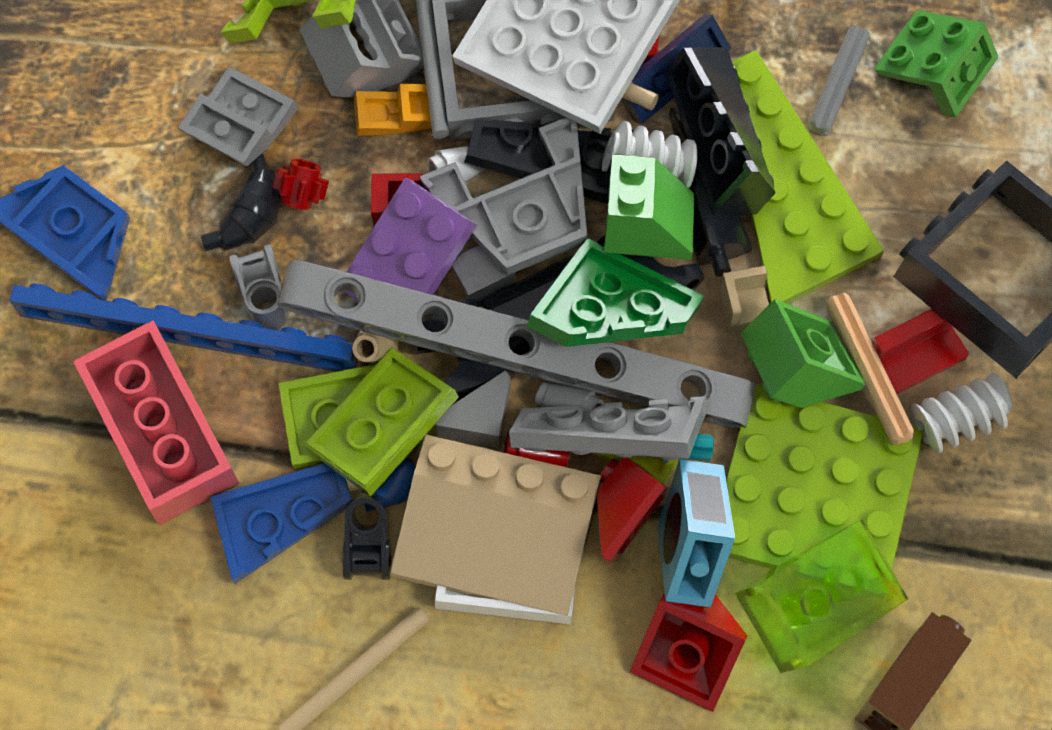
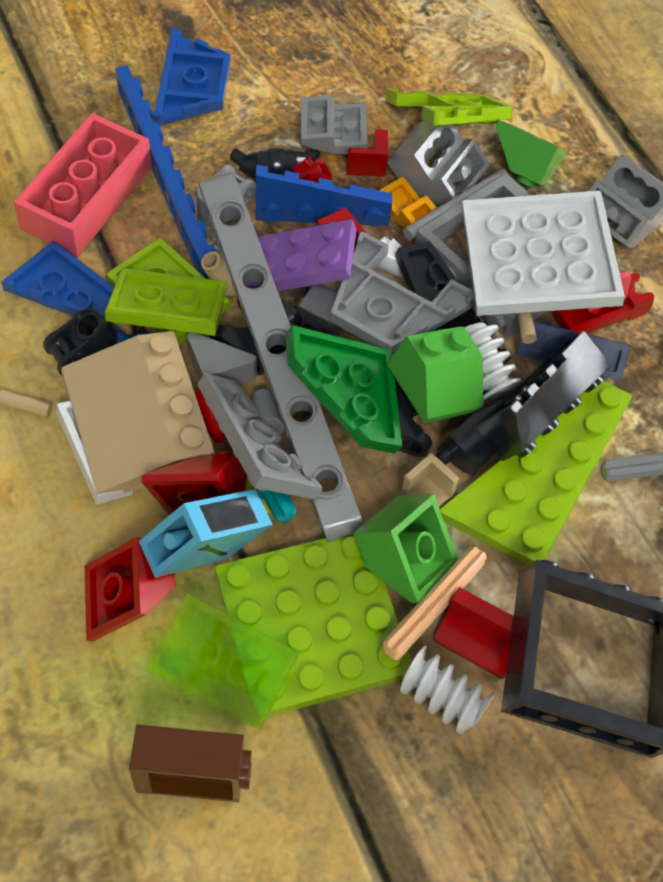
camera: 50 degrees right, 10 degrees down
(313, 103) = (370, 160): none -> red panel
(333, 211) = (304, 201): none -> blue wing

